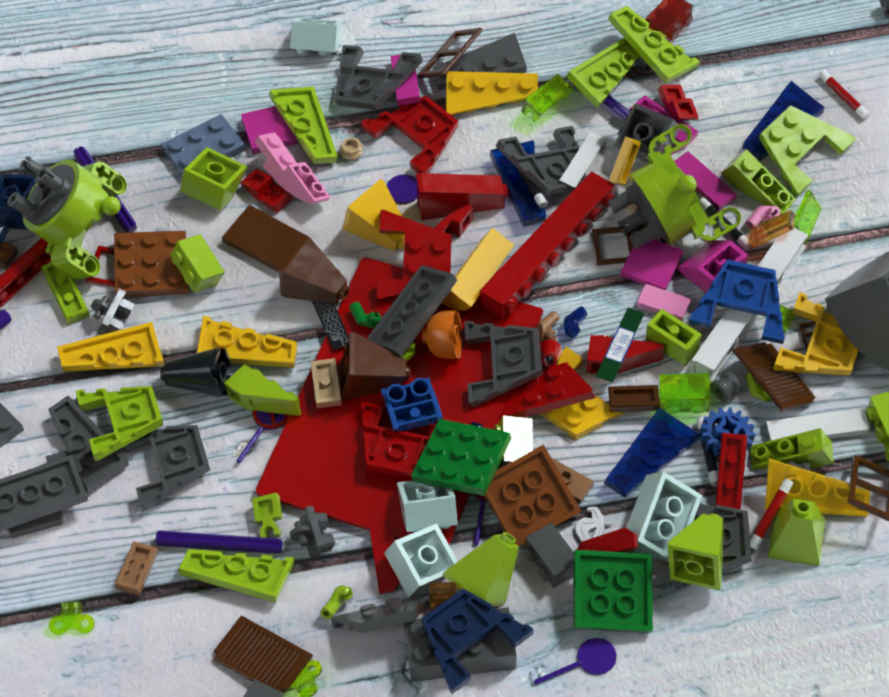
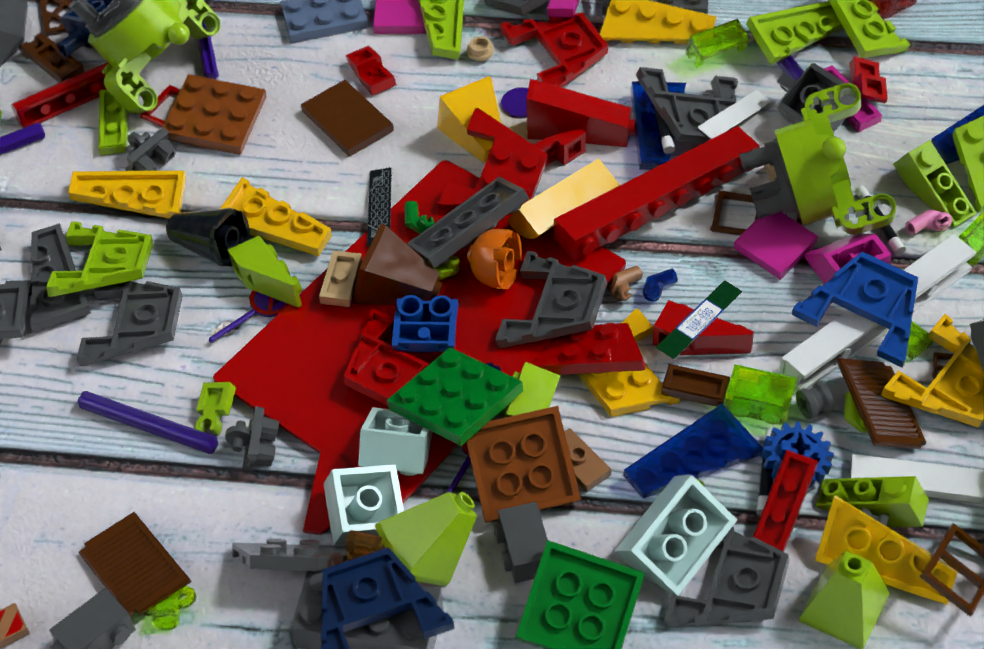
camera: 20 degrees right, 5 degrees down
(136, 568) = (41, 426): medium nougat plate -> none
(197, 263) = (257, 122): lime brick -> none
(212, 178) = (315, 43): lime slope -> none
(248, 575) = (153, 463): lime wing -> none
(289, 174) = (398, 55): bright pink slope -> none
(311, 275) = (372, 160): reddish brown slope -> none
(336, 601) = (248, 525): lime arm -> none
(550, 352) = (617, 305): red cone -> none
(586, 525) = (586, 519): white piece -> none
(616, 541) = (606, 545): red piece -> none
(625, 161) = (782, 115): yellow tile -> none
(655, 299) = (773, 288): bright pink tile -> none
(679, 339) = (773, 328): lime brick -> none
(698, 553) = (705, 587): lime slope -> none
(708, 183) = (871, 168): dark pink tile -> none
(770, 513) = (817, 565): red bar -> none
(772, 228) = (933, 235): clear orange tile -> none

